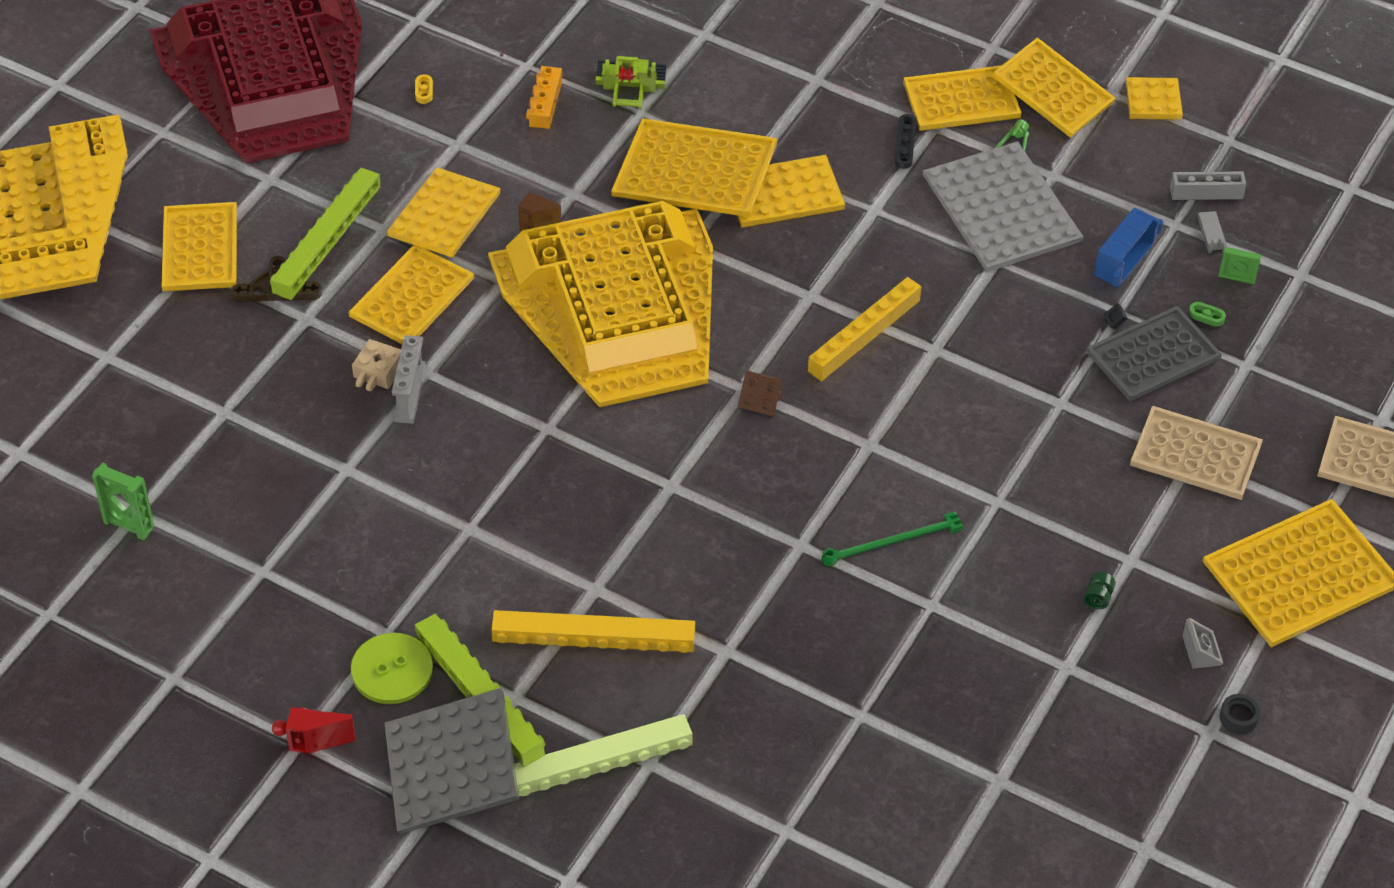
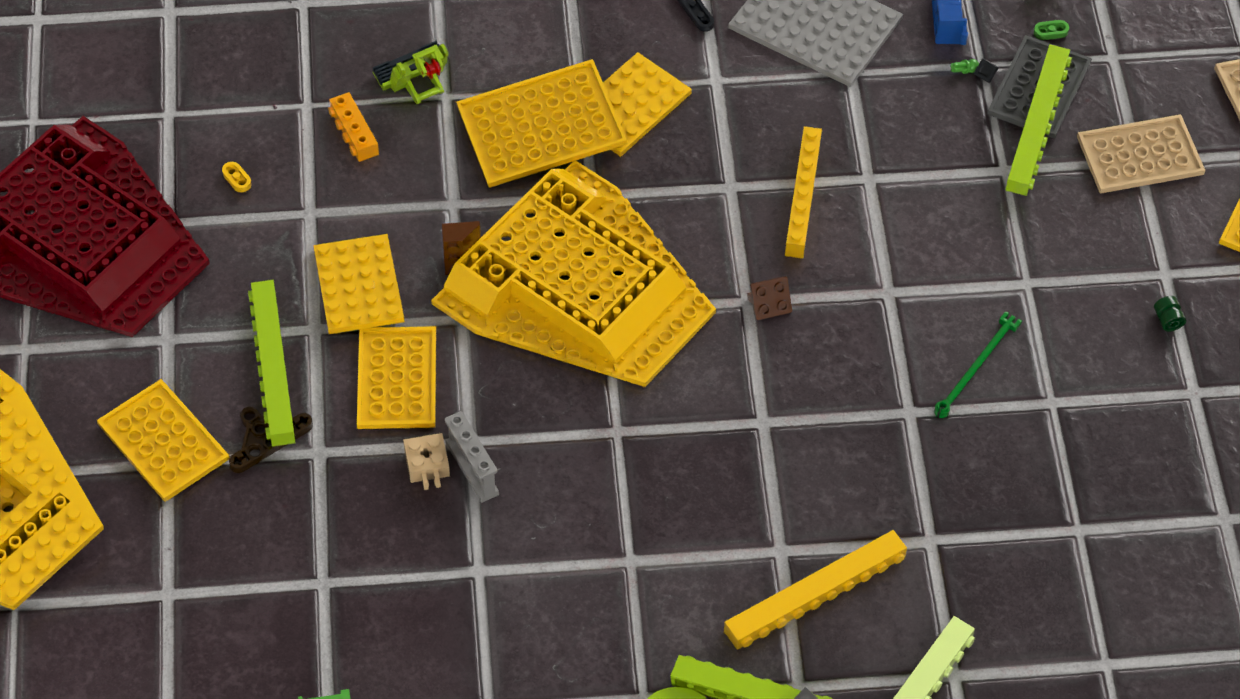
camera: 35 degrees left, 5 degrees up
(1098, 303) = (964, 66): none -> bright green axle
(1121, 375) = (1038, 119): none -> lime brick

